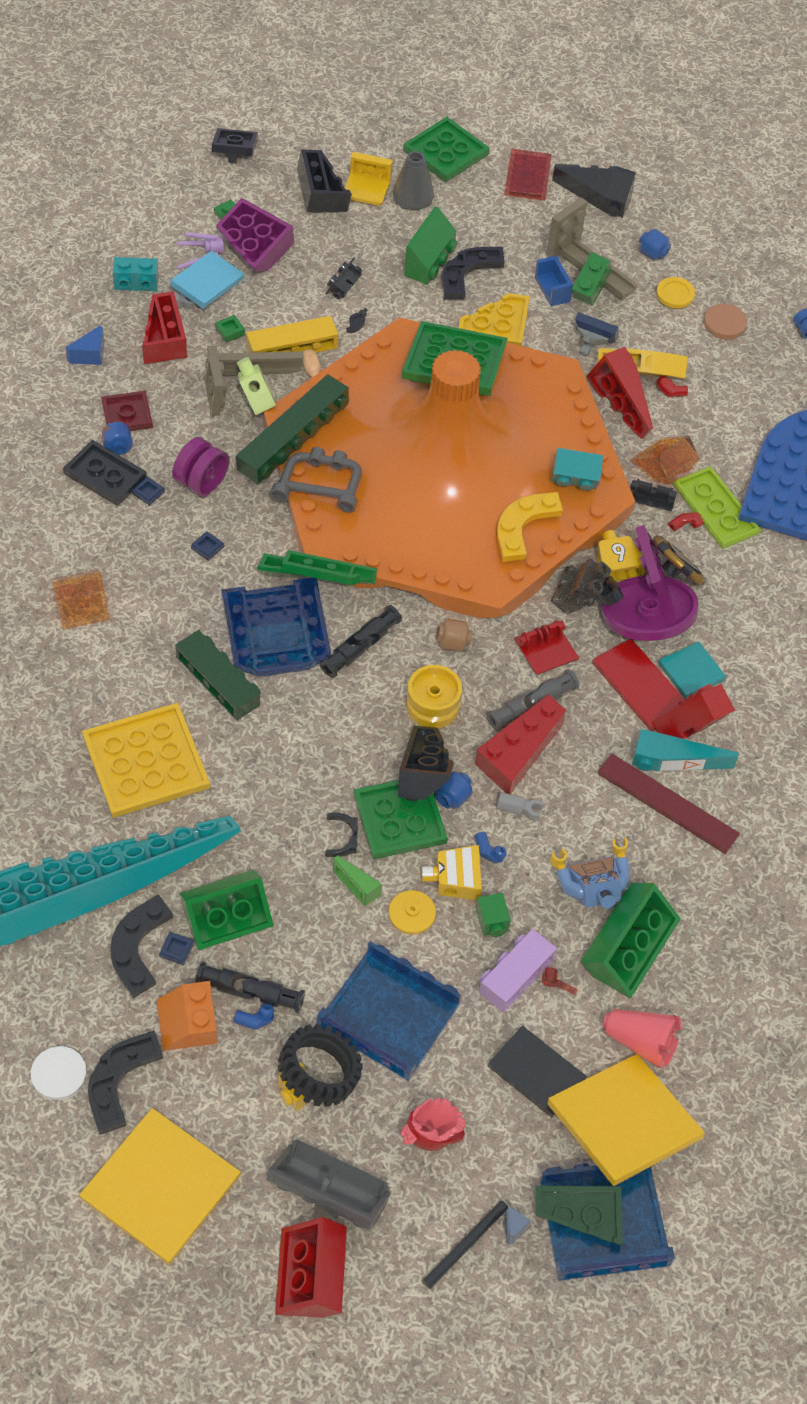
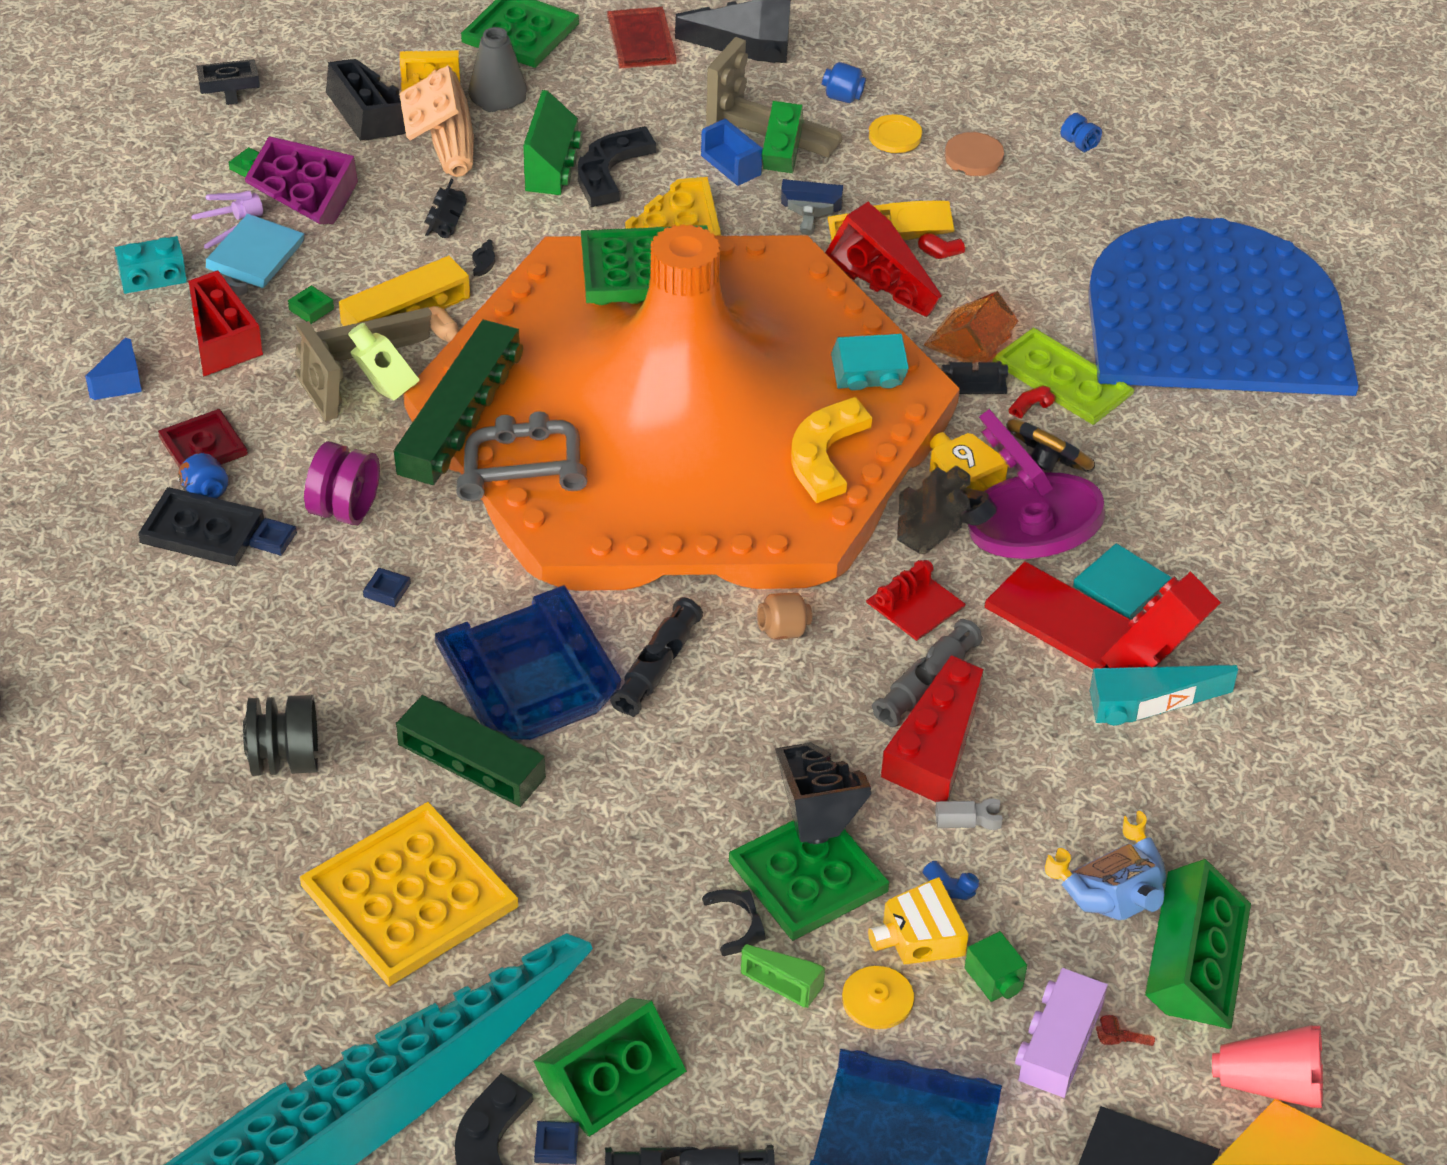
camera: 15 degrees left, 10 degrees down
(80, 599) = (220, 696): clear orange slope -> none
(101, 634) = (281, 735): none -> pearl dark grey wheel
(304, 566) = (543, 573): green wedge -> none
(366, 203) = (443, 109): none -> light nougat plate
(434, 696) = (792, 699): yellow wheel -> none
(455, 791) = (873, 819): blue head -> none
(668, 803) = (1168, 758): dark red tile -> none

